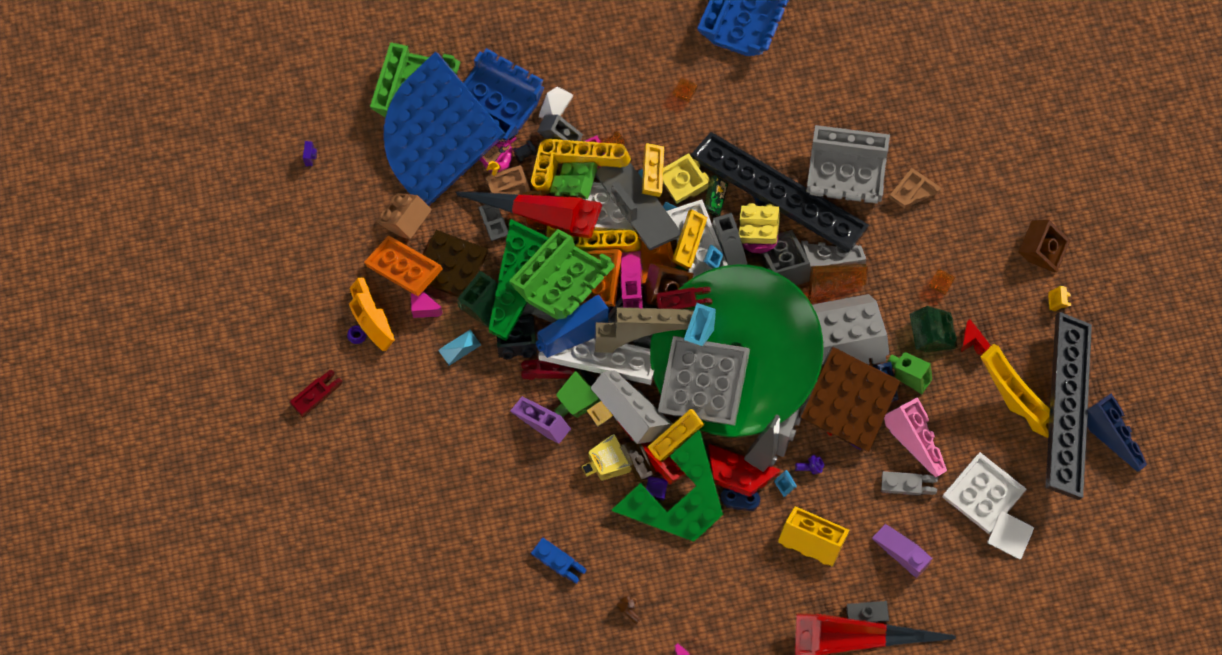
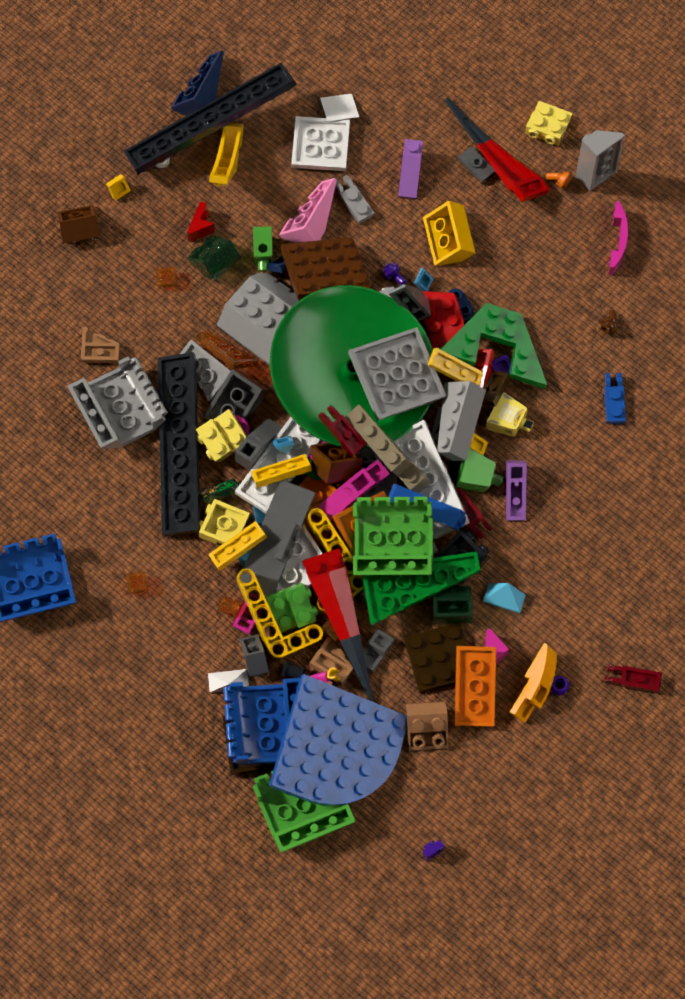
camera: 130 degrees left, 0 degrees up
(701, 325) = (358, 396): medium azure slope -> none

